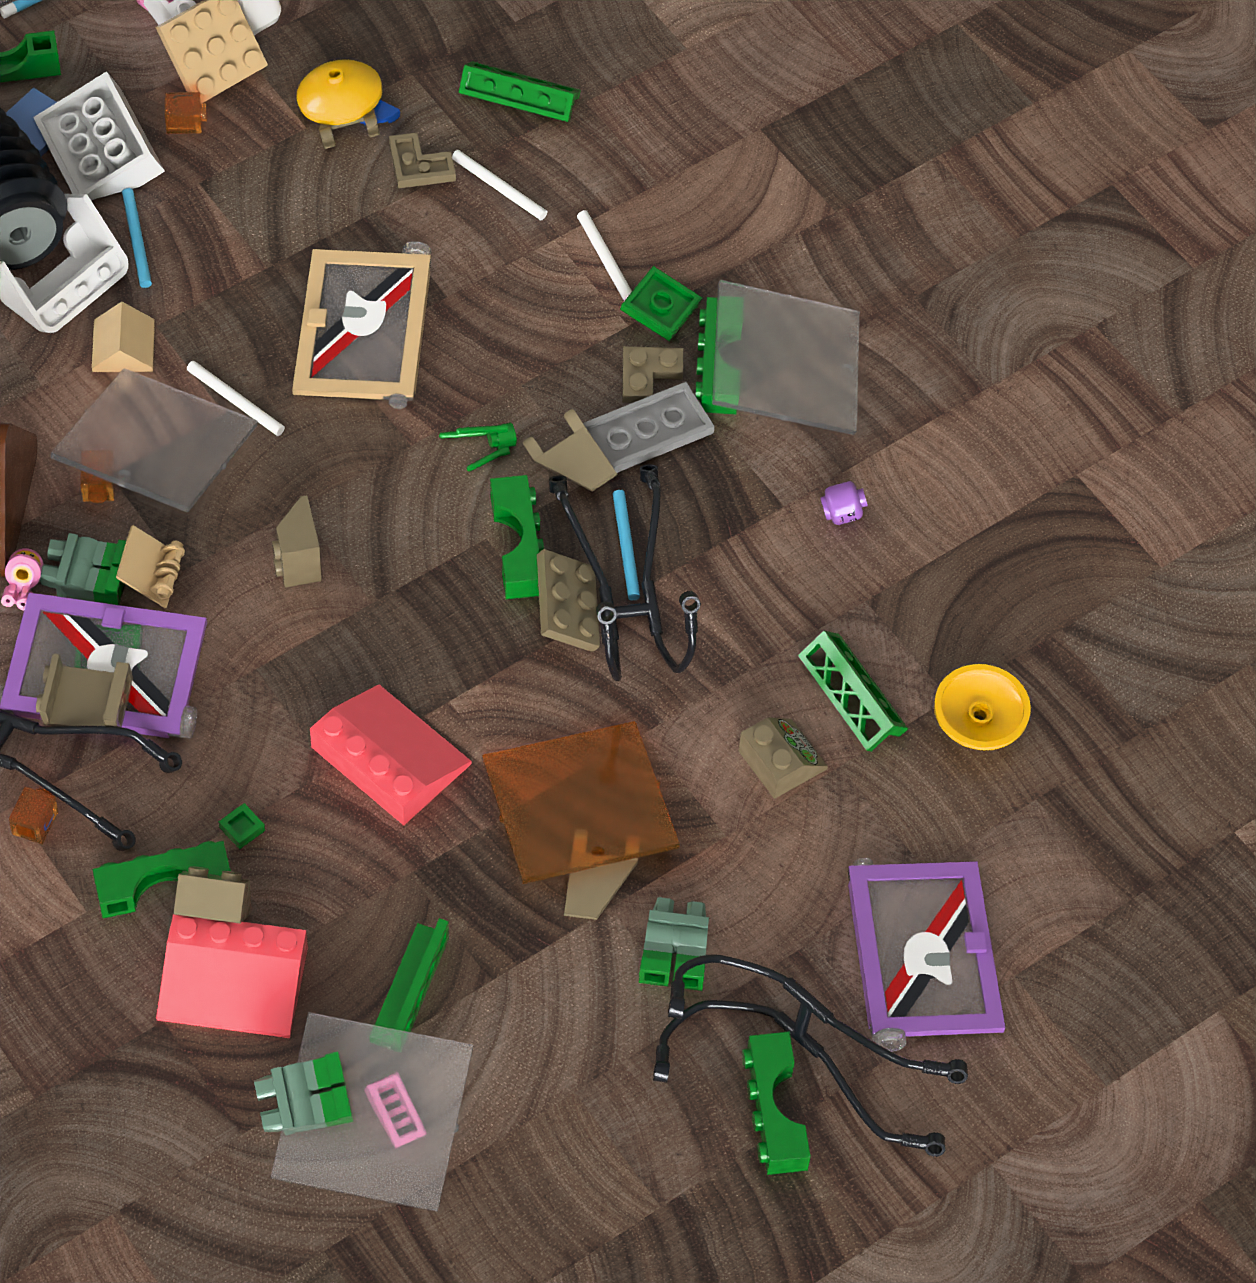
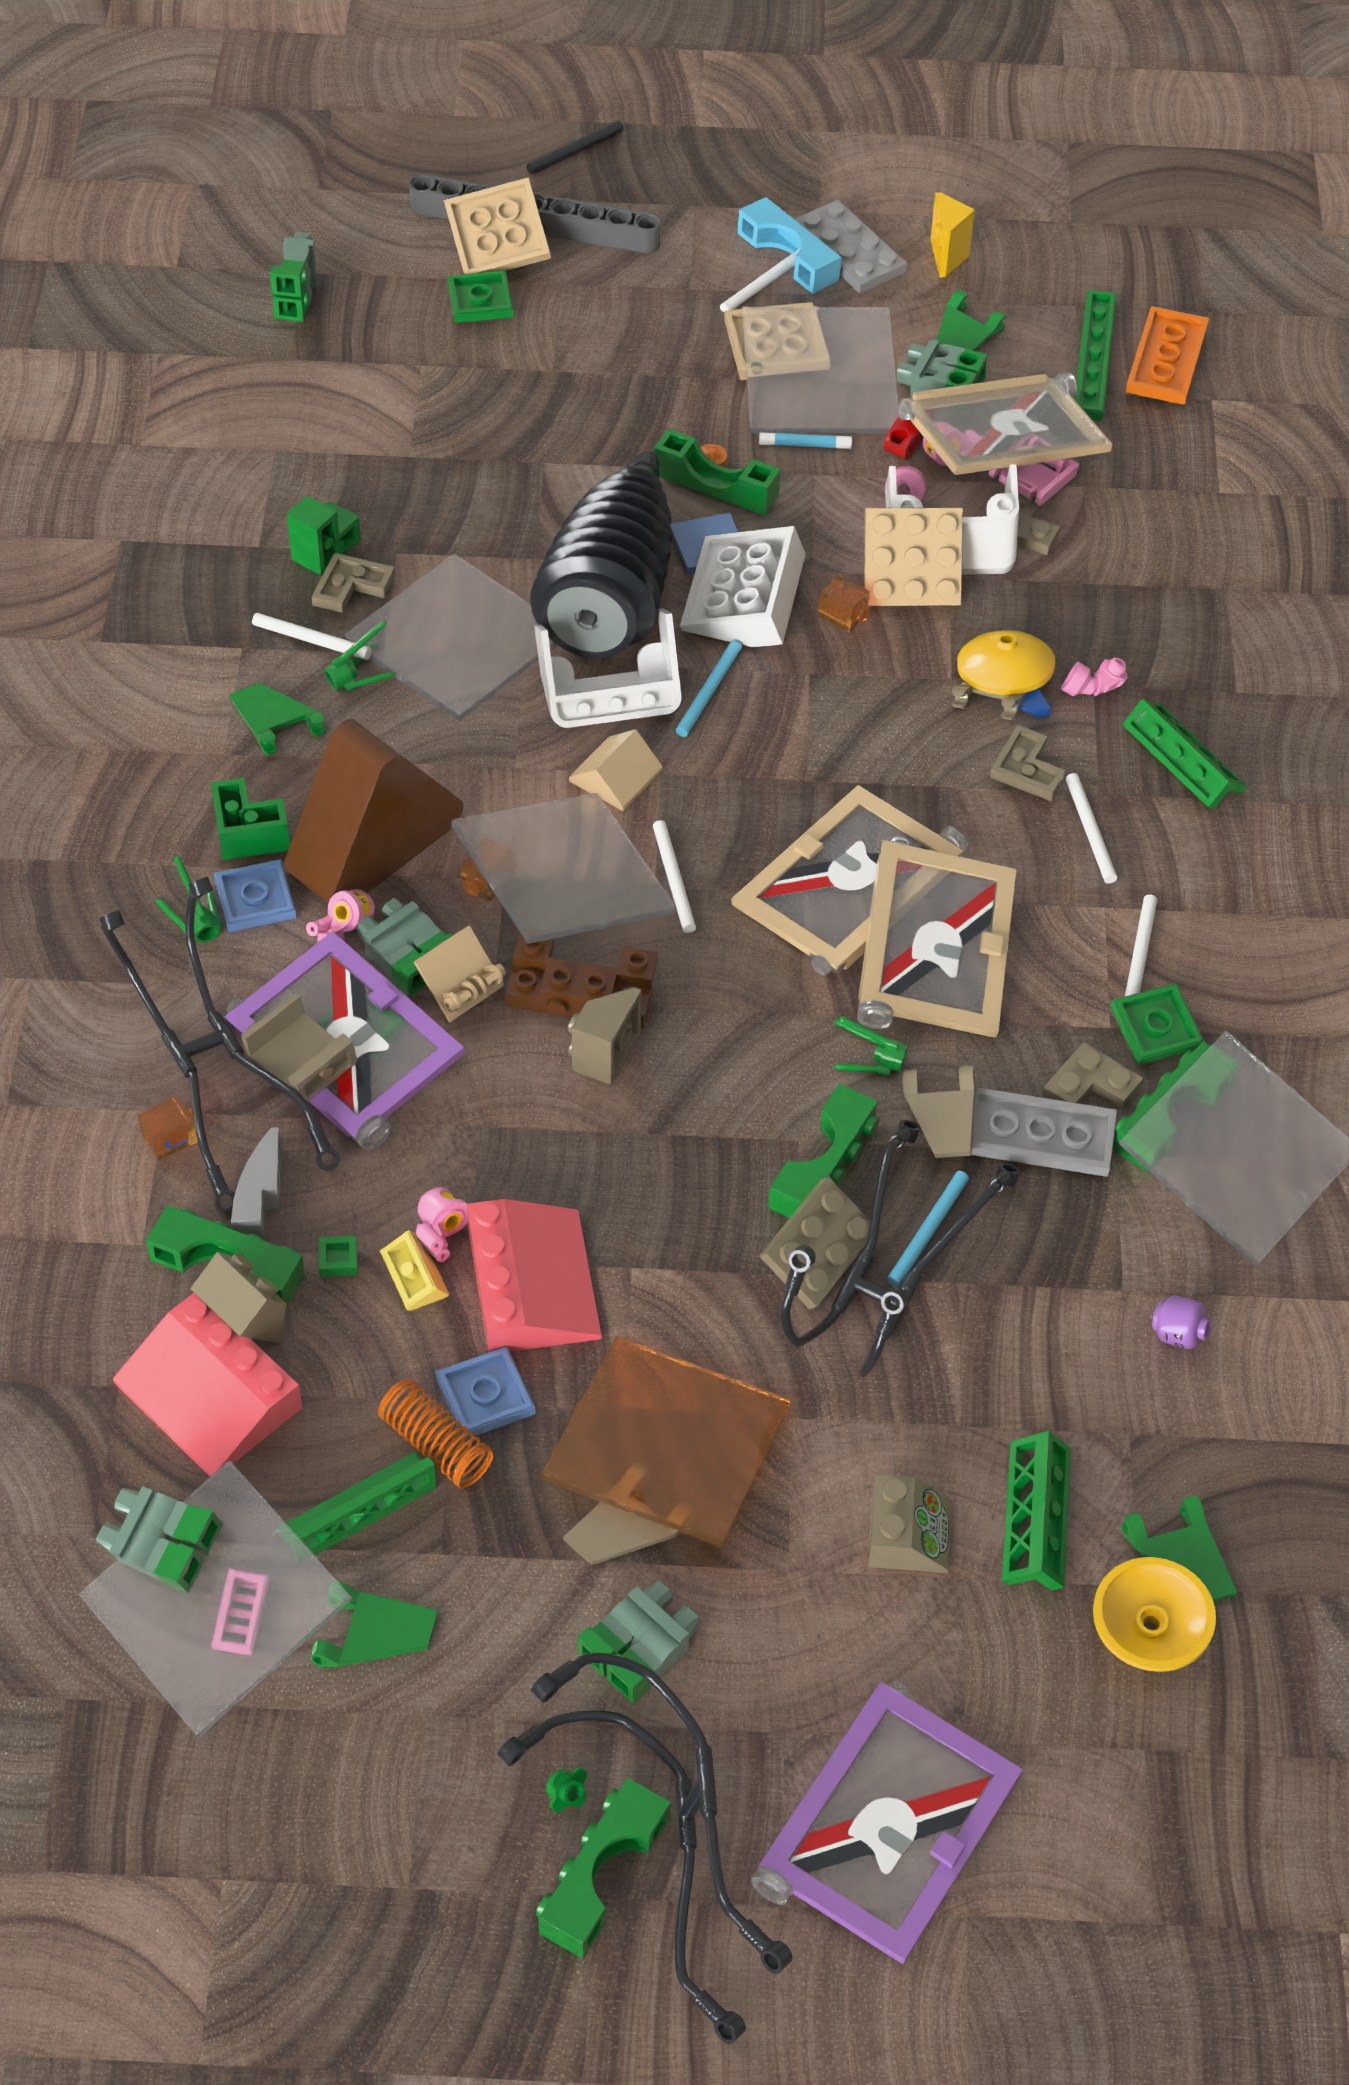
camera: 40 degrees right, 5 degrees down
(143, 814) = (258, 1186): none -> light grey slope
(239, 525) = (566, 985): none -> reddish brown bracket
(291, 749) = (441, 1218): none -> bright pink piece
(301, 802) = (413, 1271): none -> light yellow slope
(405, 74) = (1108, 677): none -> bright pink arm
(426, 852) = (485, 1392): none -> medium blue tile
(464, 333) = (936, 940): none -> door
(466, 909) = (465, 1457): none -> orange piece
(498, 1058) = (377, 1631): none -> green flag
(711, 1071) = (566, 1789): none -> green plate
(961, 651) = (1187, 1546): none -> green flag

